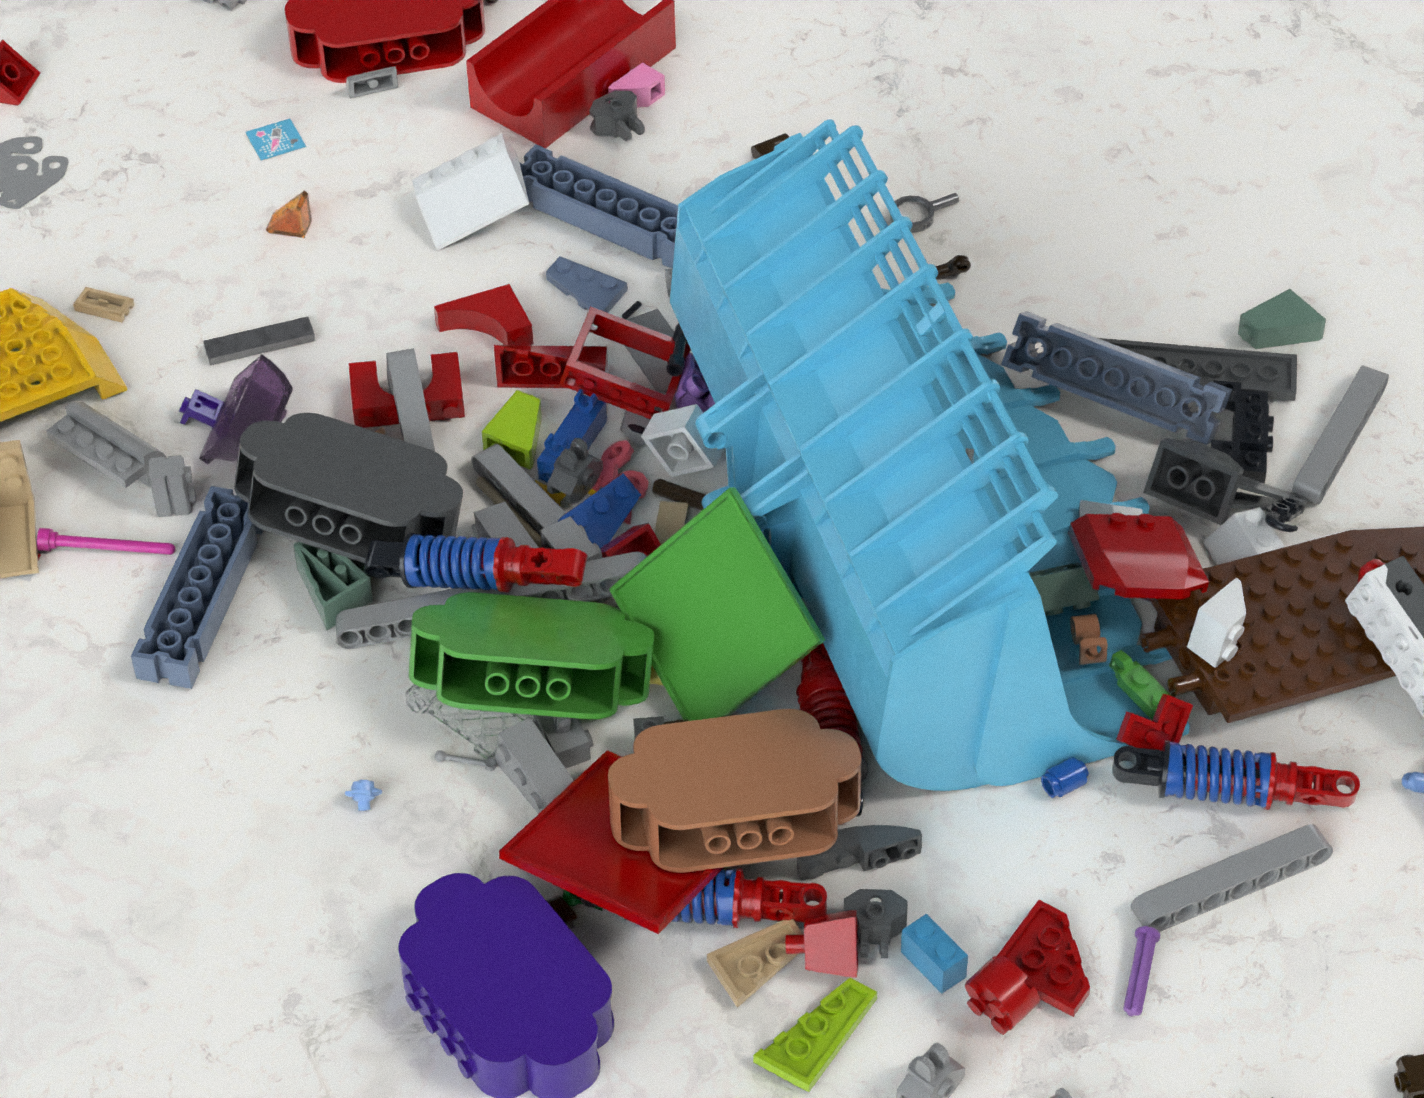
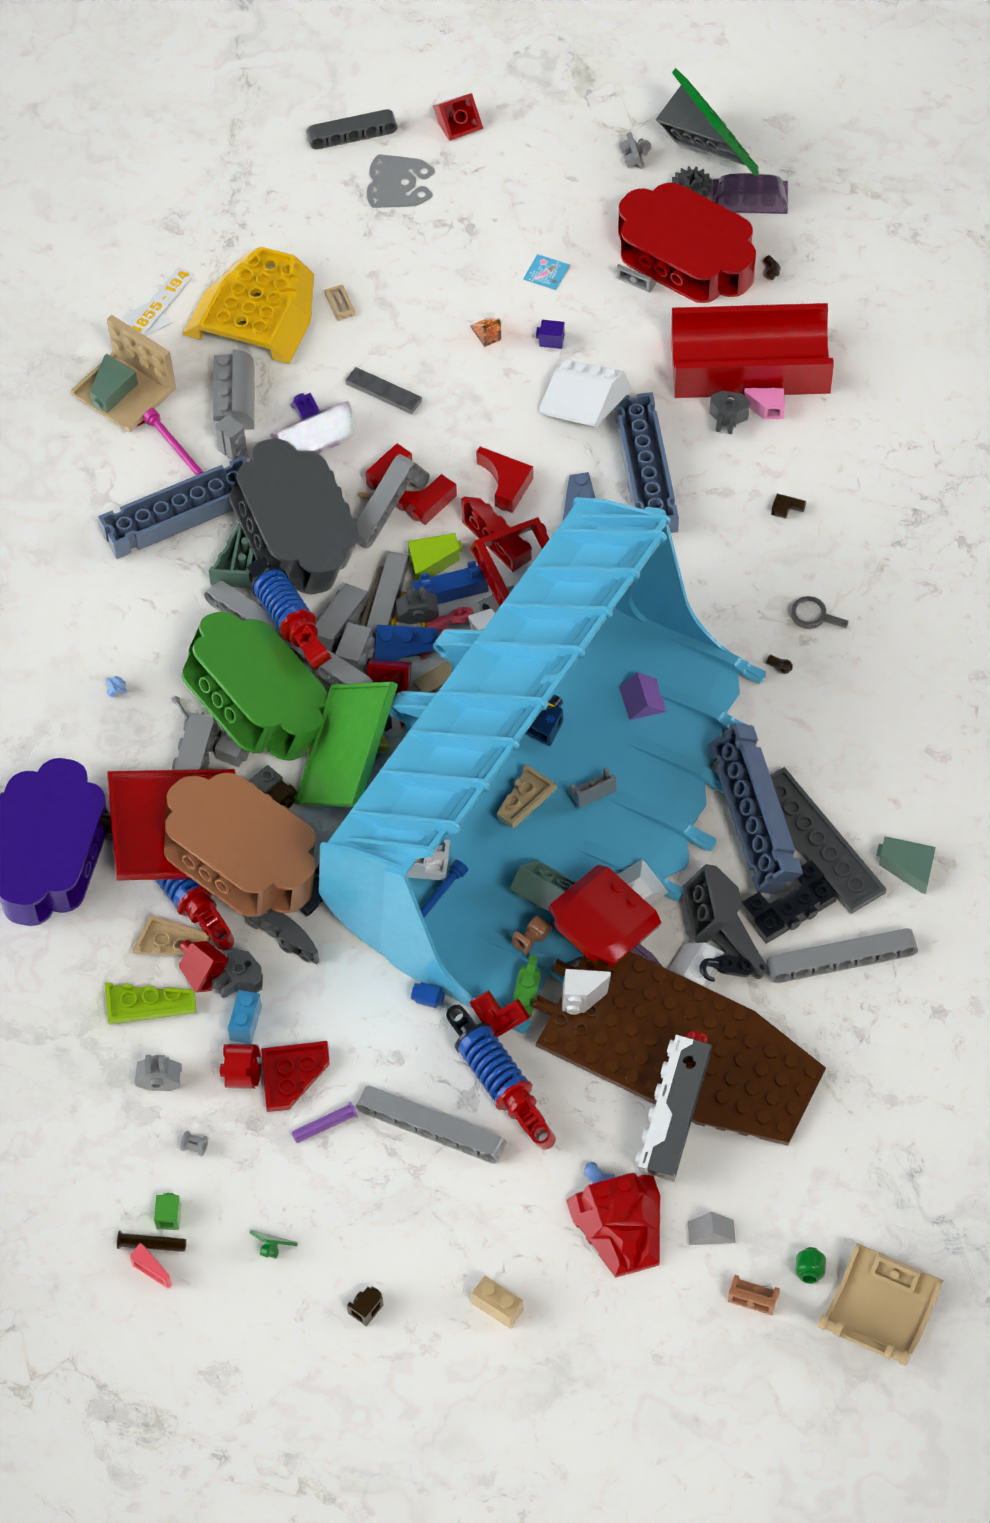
camera: 50 degrees right, 10 degrees up
(360, 177) = (551, 334): none -> dark purple brick

